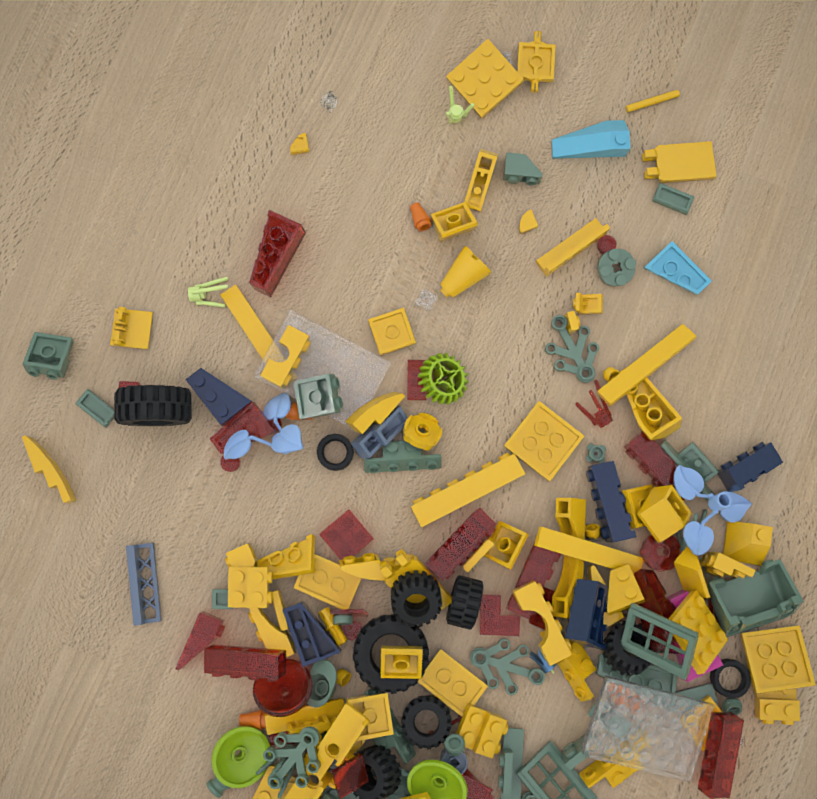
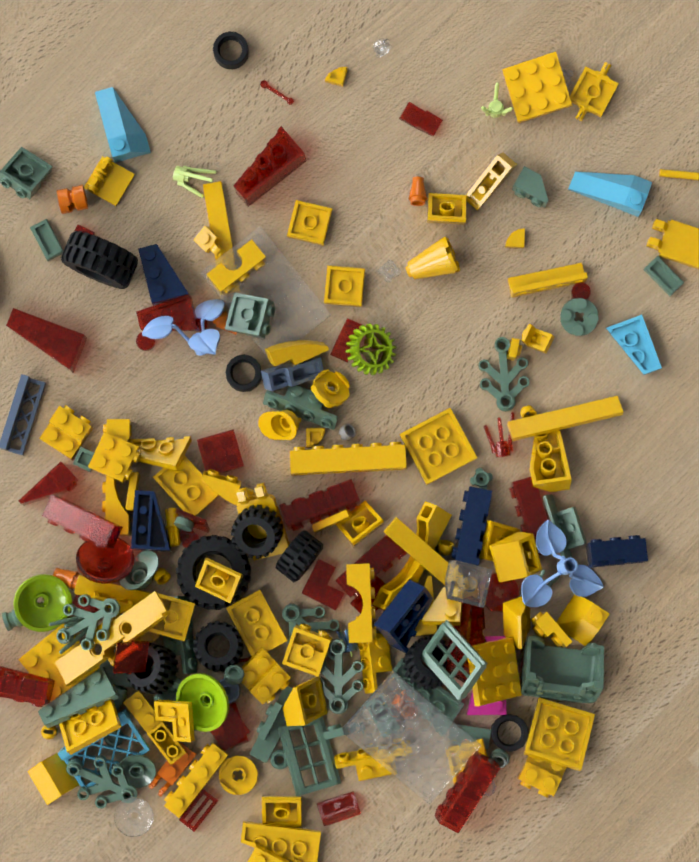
camera: 30 degrees right, 0 degrees up
(103, 360) = (72, 199): none -> orange wheel
(124, 277) = (122, 130): none -> medium azure wedge
(144, 500) = (50, 338): none -> clear red wedge
(188, 148) = (226, 37): none -> black tyre
(193, 580) = (66, 431): none -> yellow plate
(236, 180) = (264, 84): none -> clear red hinge
(248, 344) = (208, 241): none -> yellow plate
(334, 287) = (309, 222): none -> yellow plate
(390, 486) = (279, 424): none -> yellow piece
(392, 152) = (420, 119): none -> clear red slope
(426, 482) = (314, 436): none -> yellow tile
(457, 461) = (347, 428): none -> light grey hinge
(511, 687) = (307, 649): none -> yellow plate
(533, 740) = (305, 703): none -> yellow slope
(551, 701) = (338, 680): none -> sand green plant
(633, 558) = (467, 583): none -> clear slope

